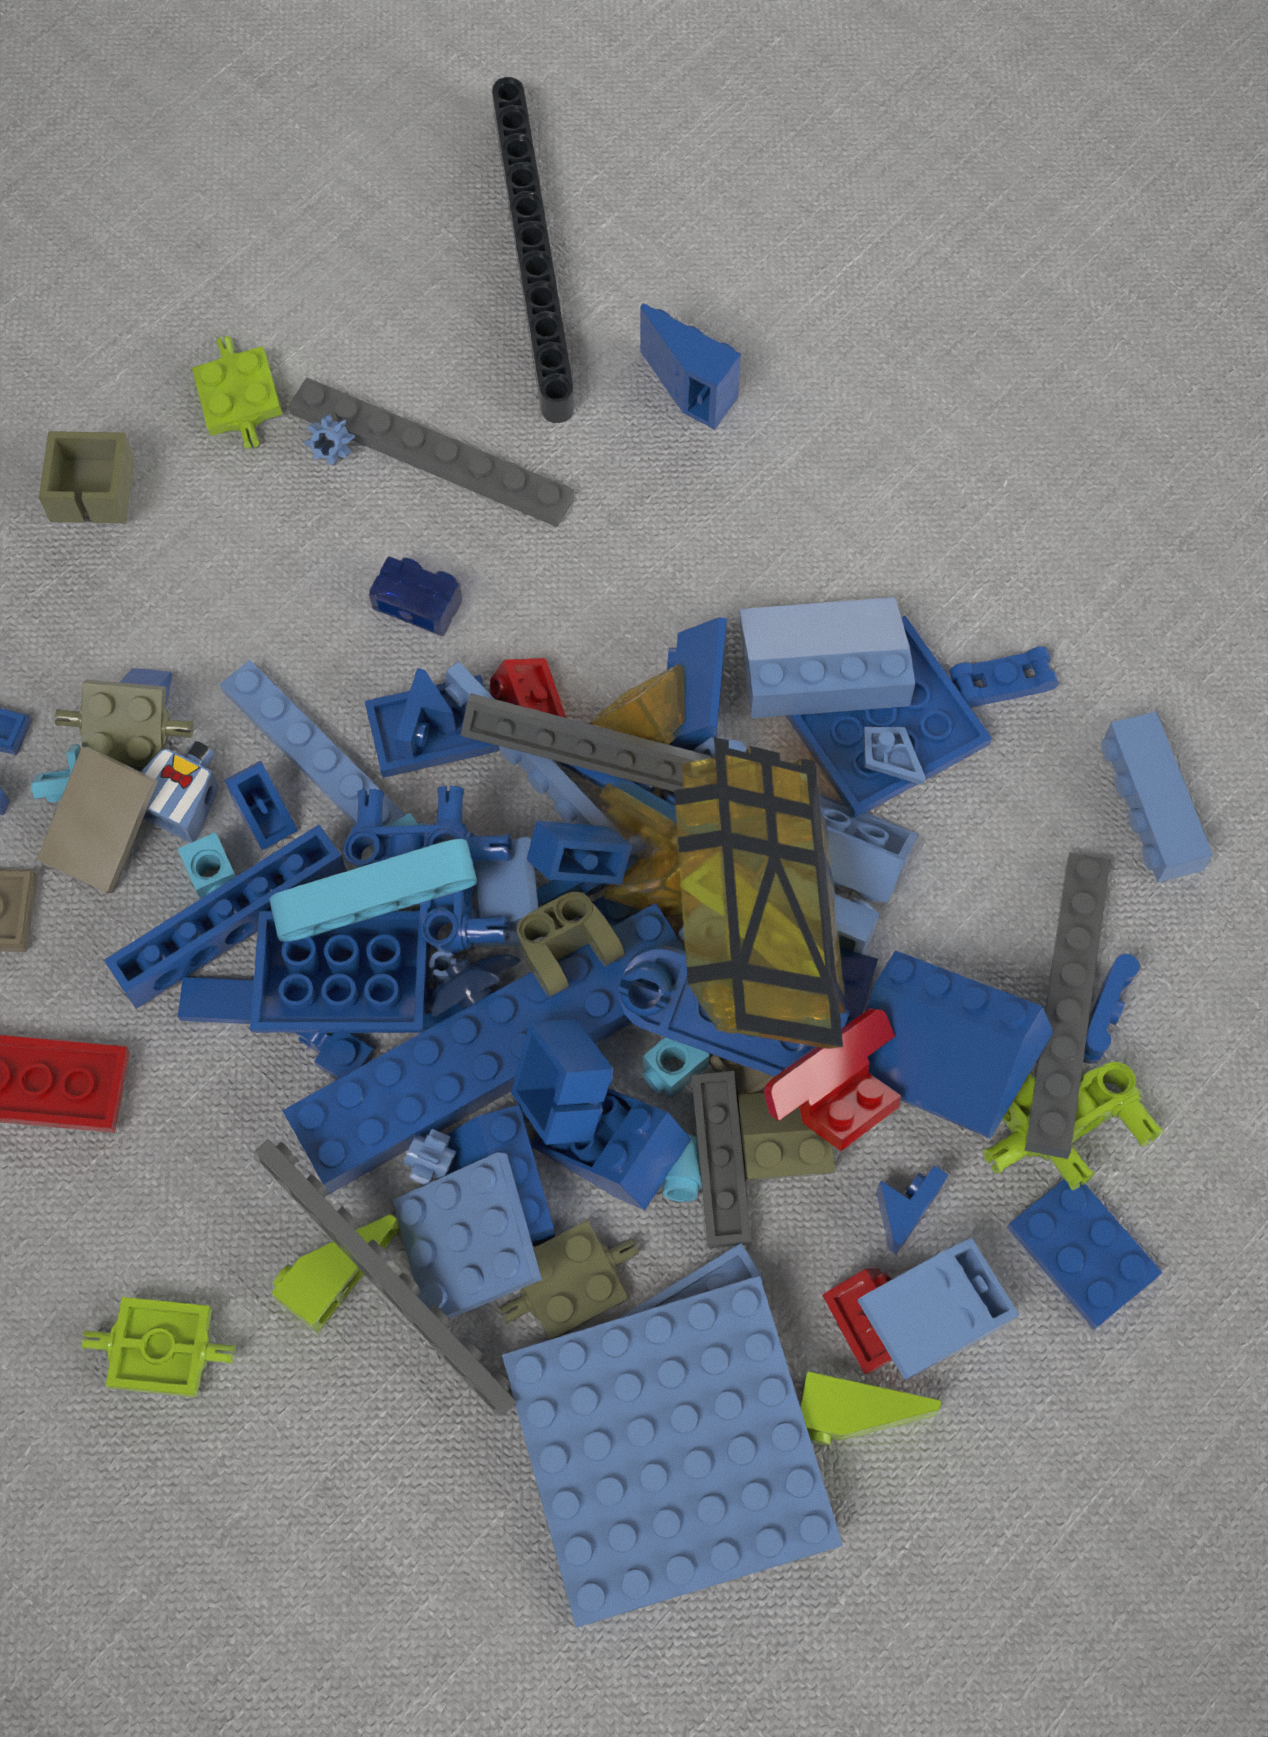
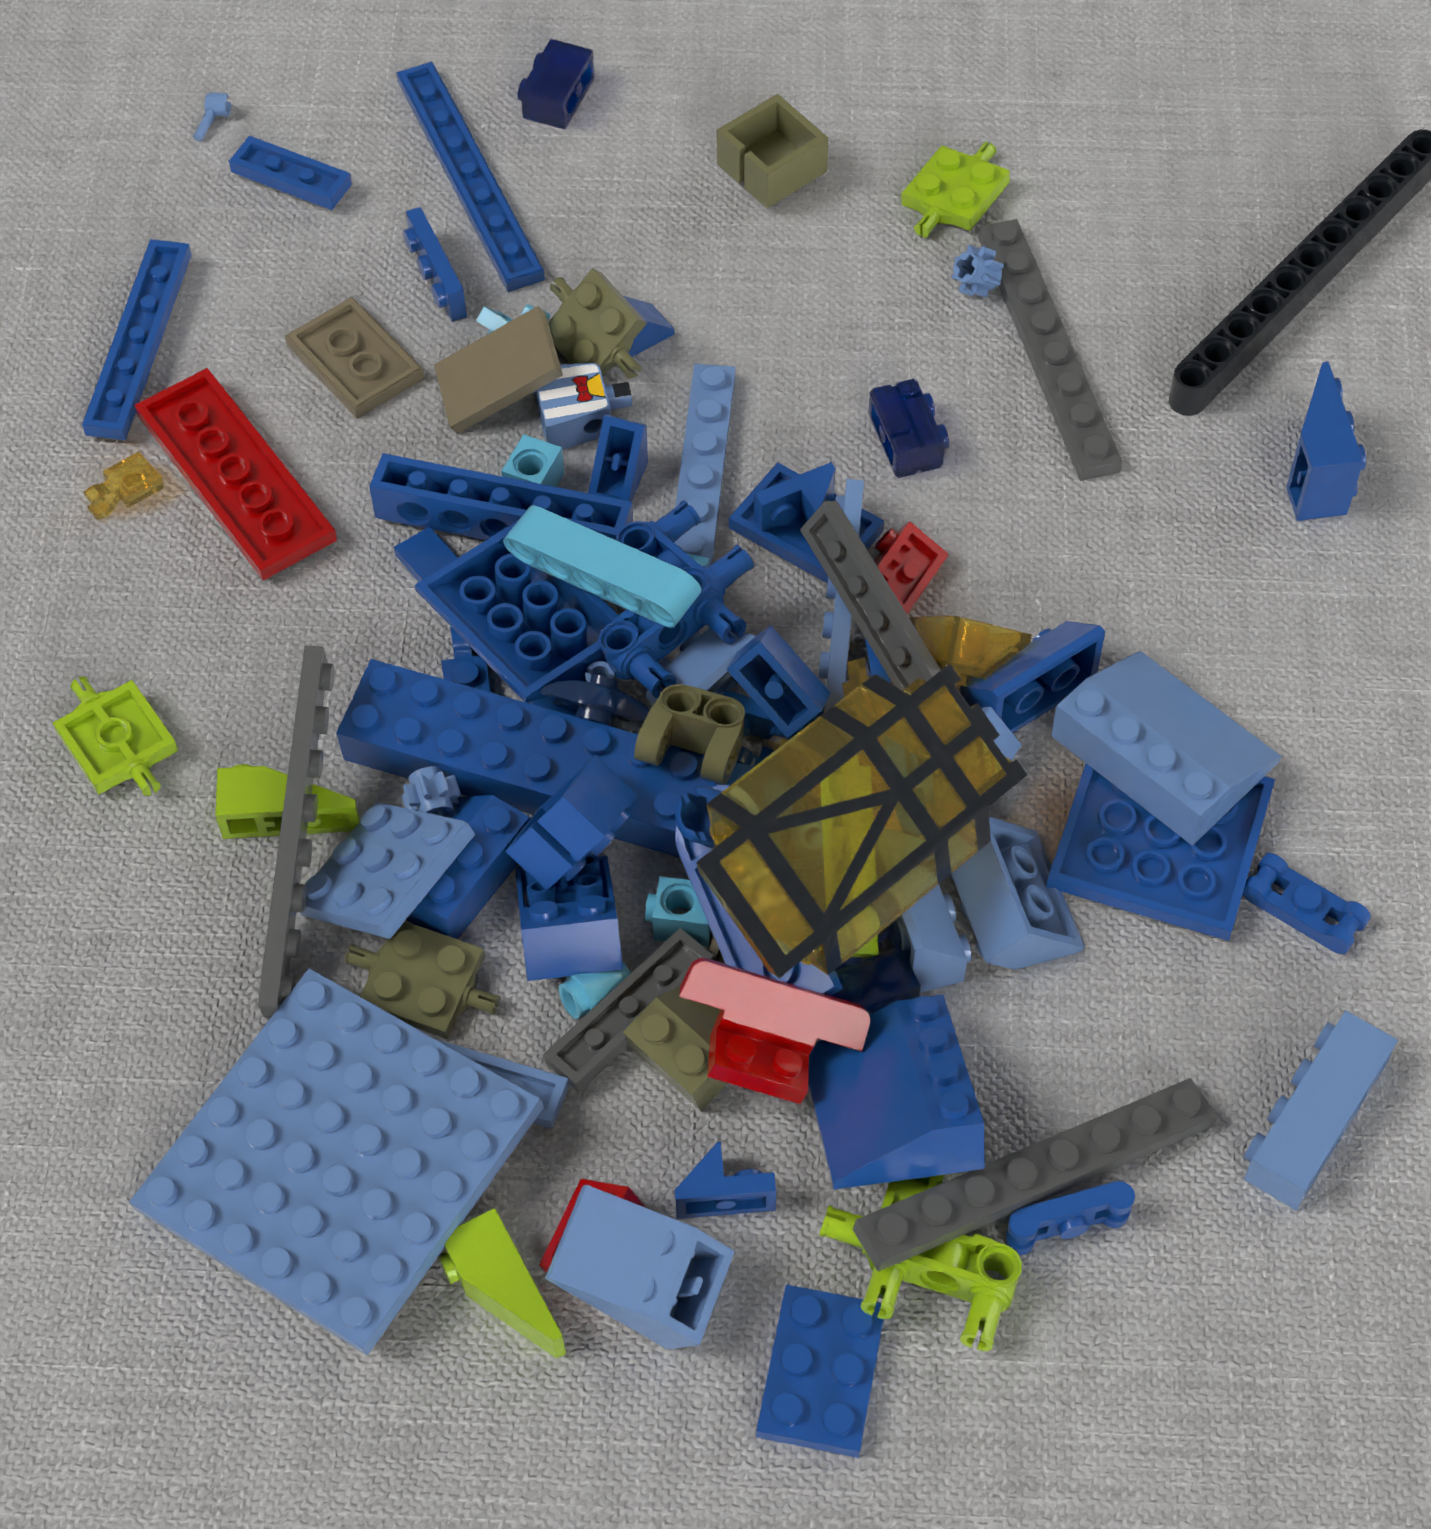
camera: 50 degrees right, 10 degrees down
(892, 753) = (1128, 860): medium blue piece -> none

